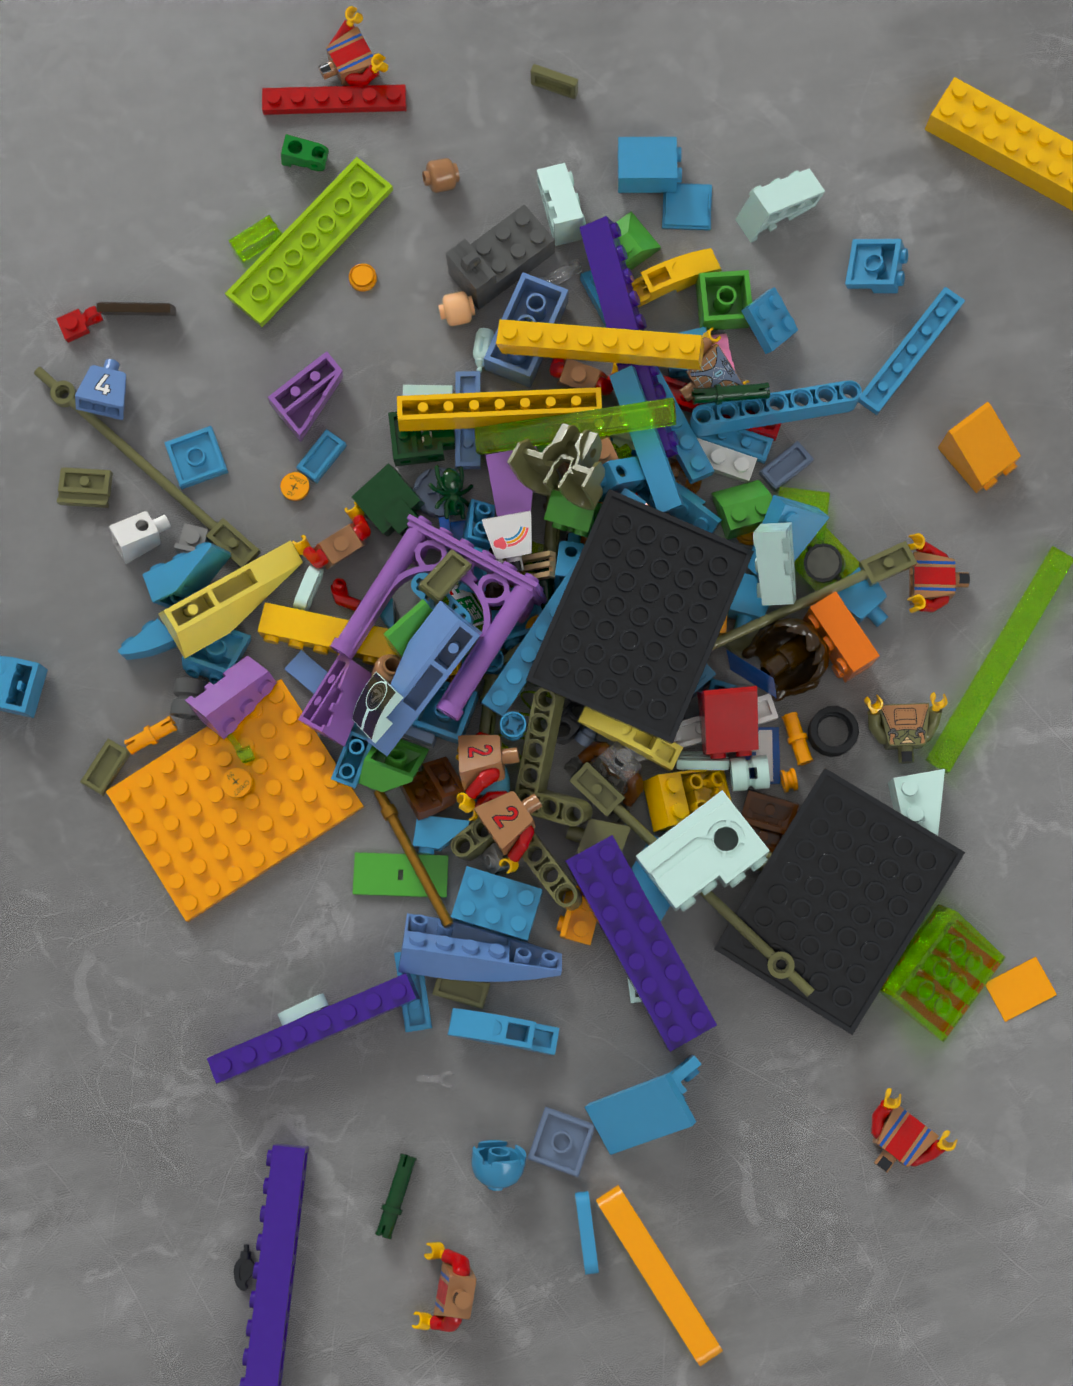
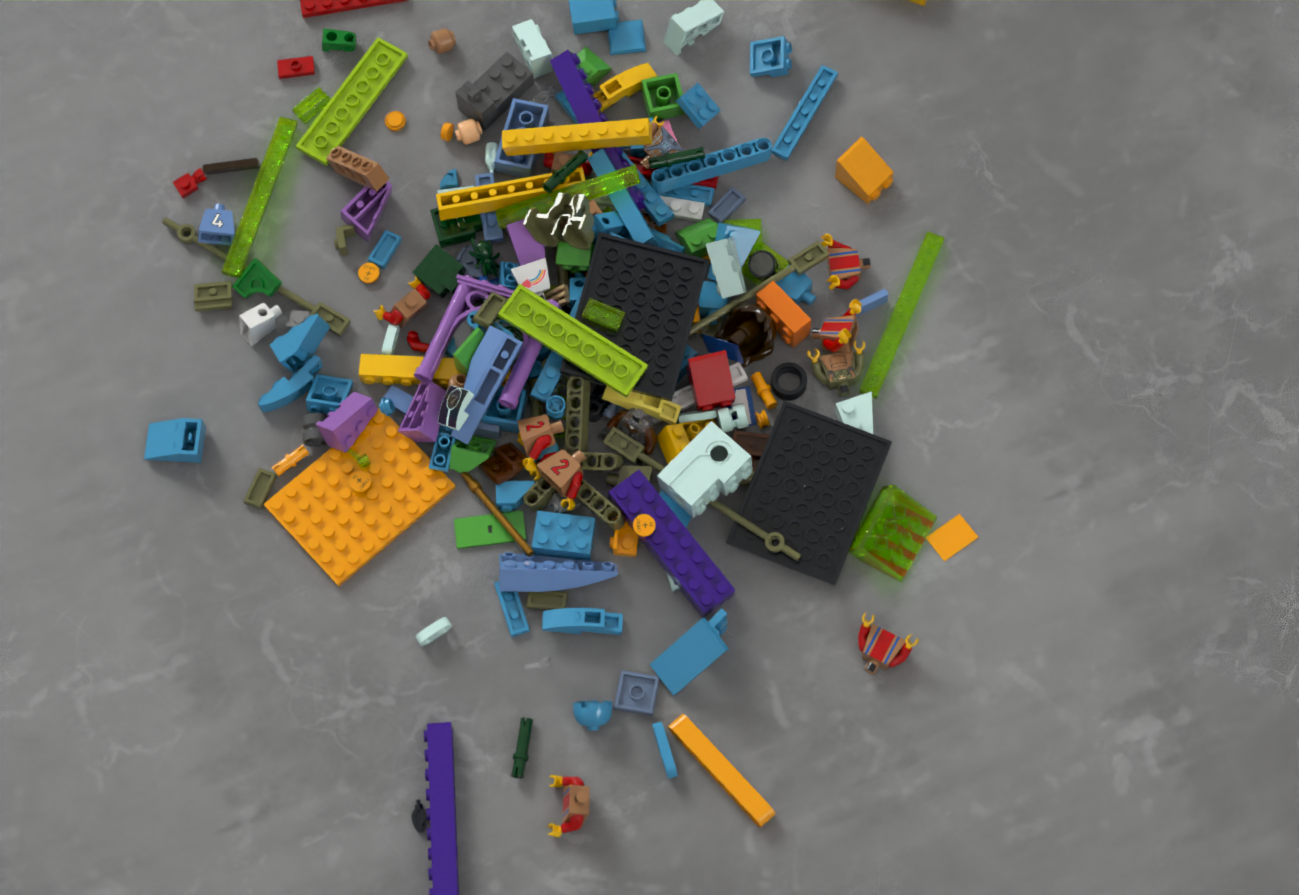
camera: 10 degrees left, 10 degrees down
(145, 474) = (257, 279): none -> green tile
(165, 359) = (259, 197): none -> clear neon green plate
(196, 457) = (292, 263): dark azure tile -> none
(227, 602) = (333, 356): light yellow wedge -> none
(243, 182) = (296, 67): none -> red plate
(263, 437) = (342, 233): none -> olive bracket
(289, 681) = (387, 406): none -> dark azure plate
(299, 340) = (357, 168): none -> medium nougat brick
(313, 1028) = (443, 640): dark purple brick -> none
(422, 372) = (450, 180): none -> dark azure tile
(428, 304) = (447, 131): none -> light orange tile
(549, 641) = (573, 340): none -> lime plate
(568, 396) = (559, 176): none -> dark green pin
(597, 610) = (603, 314): none -> clear neon green plate
(607, 918) = (644, 525): none -> light orange piece
(913, 673) = (839, 332): none -> torso
(959, 636) = (873, 301): none -> medium blue tile

